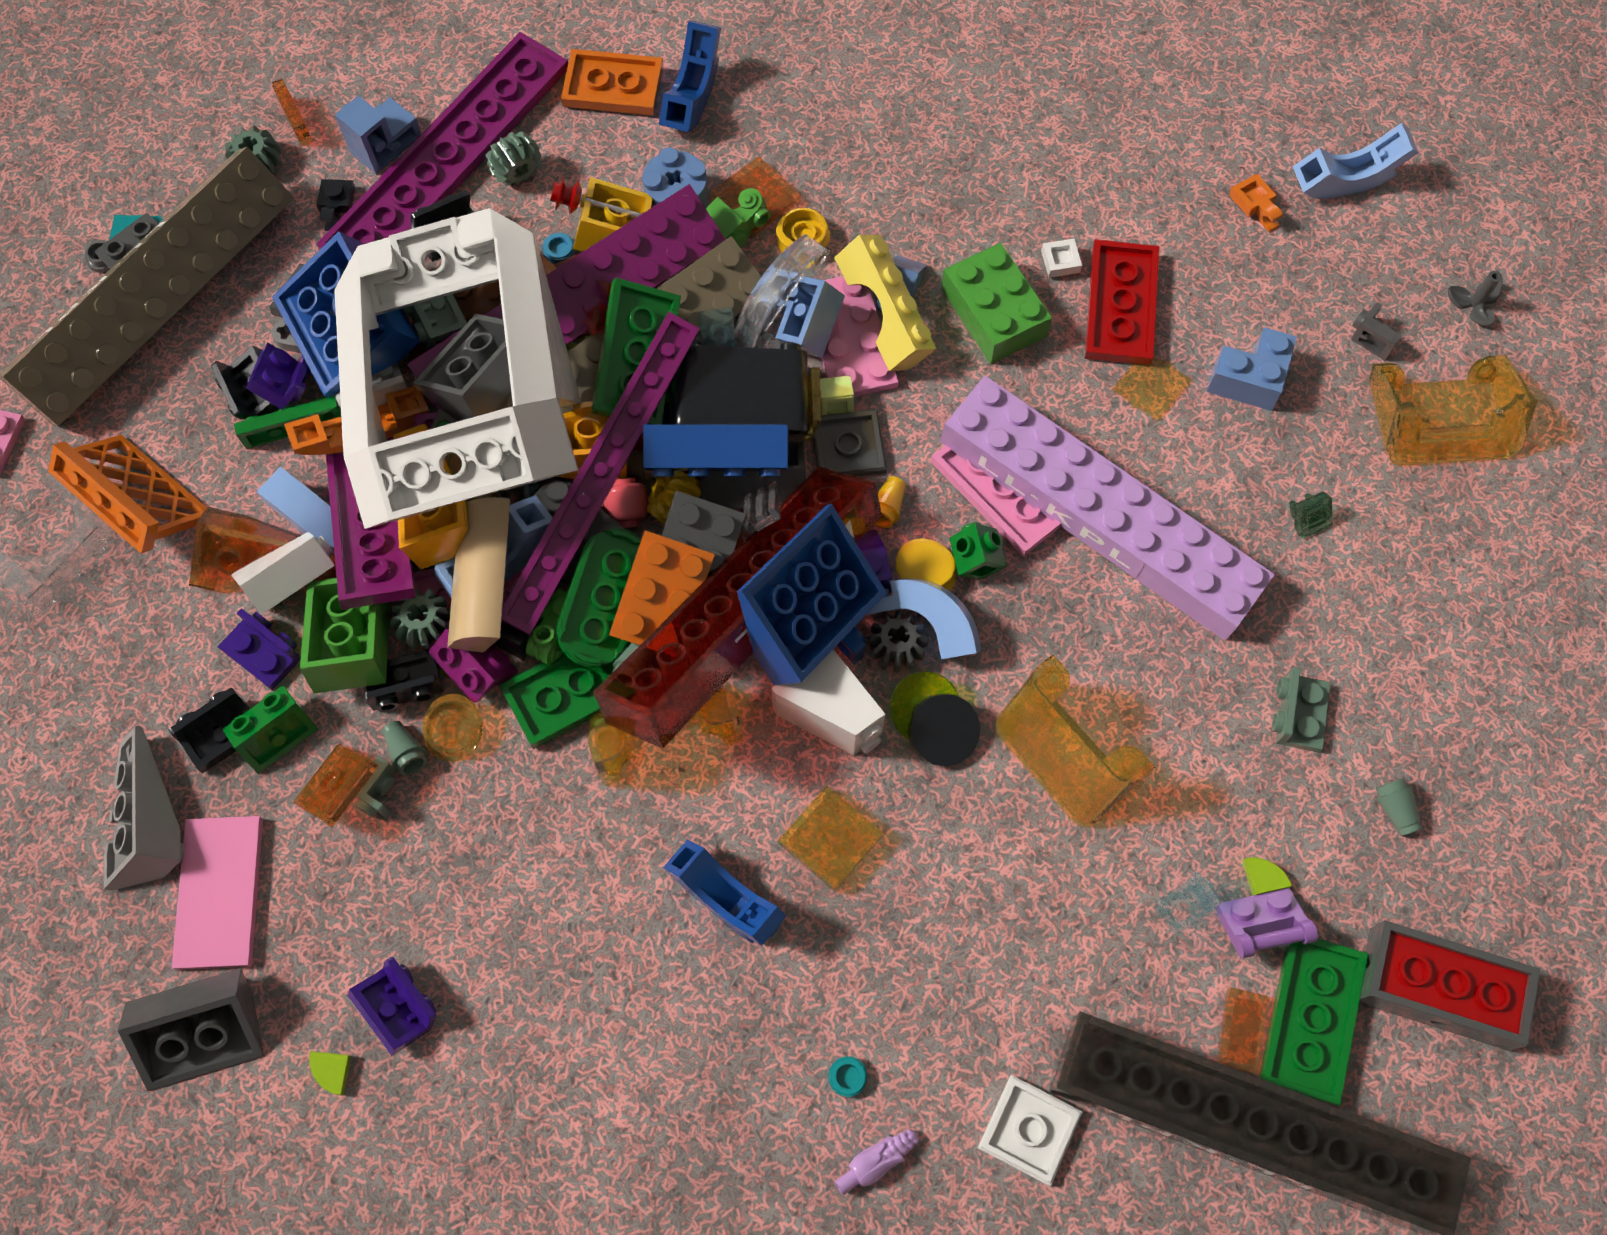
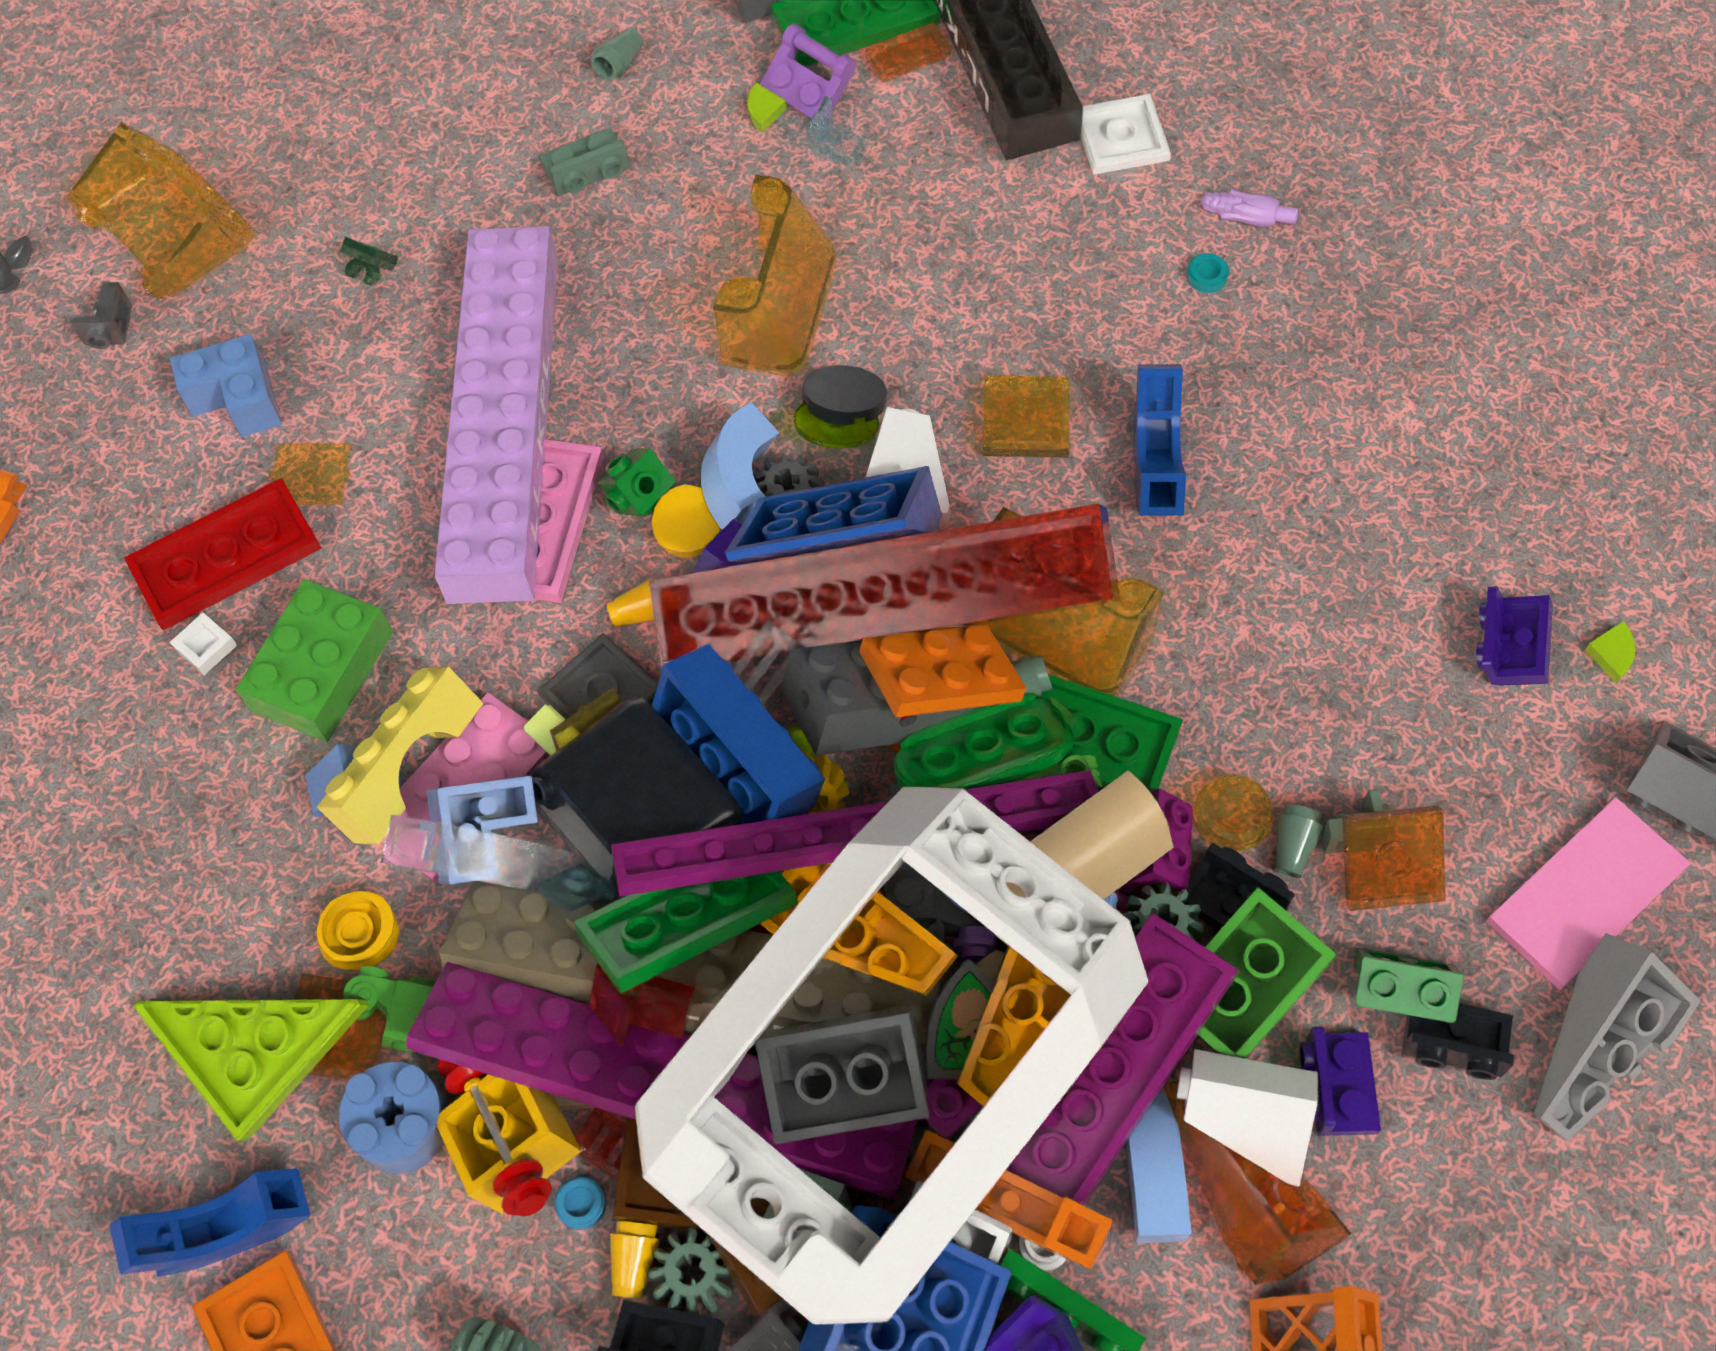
camera: 125 degrees left, 5 degrees down
(773, 144) = (248, 1051): none -> lime tile

